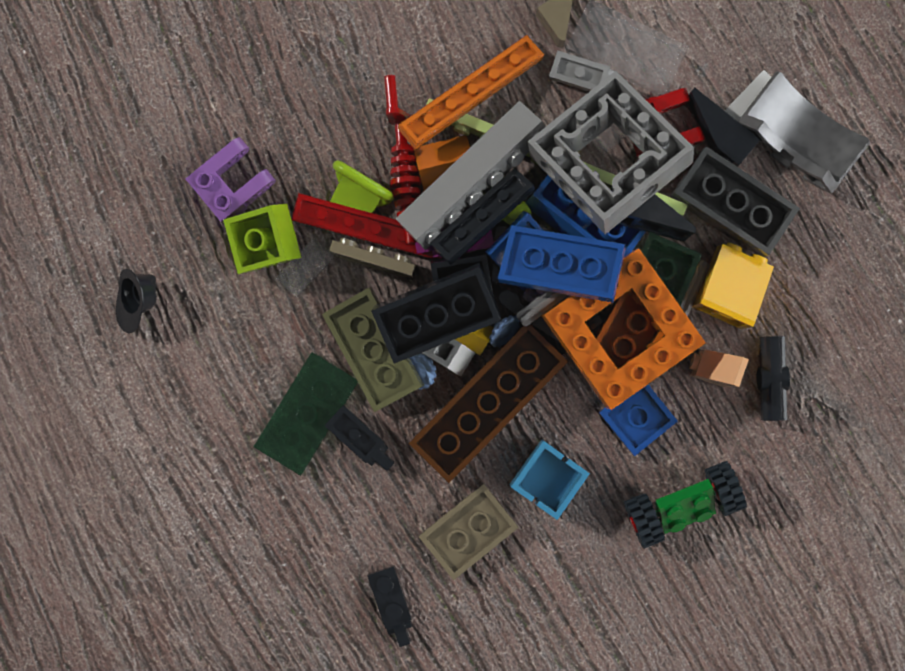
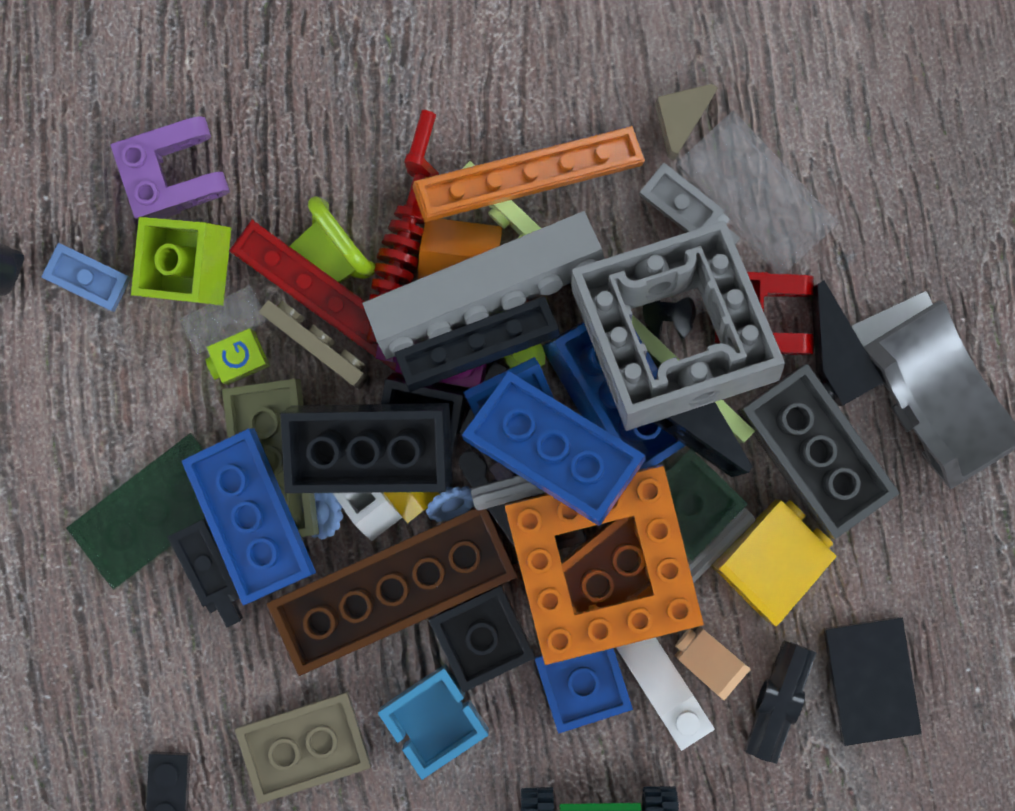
camera: 20 degrees right, 0 degrees up
(202, 274) = (86, 277): none -> medium blue plate
(323, 289) = (236, 357): none -> lime brick
(373, 391) = (248, 516): none -> blue plate
(560, 411) = (482, 638): none -> black brick
(607, 146) = (680, 313): none -> black piece
(695, 400) = (666, 691): none -> white slope
(828, 341) = (872, 681): none -> black tile

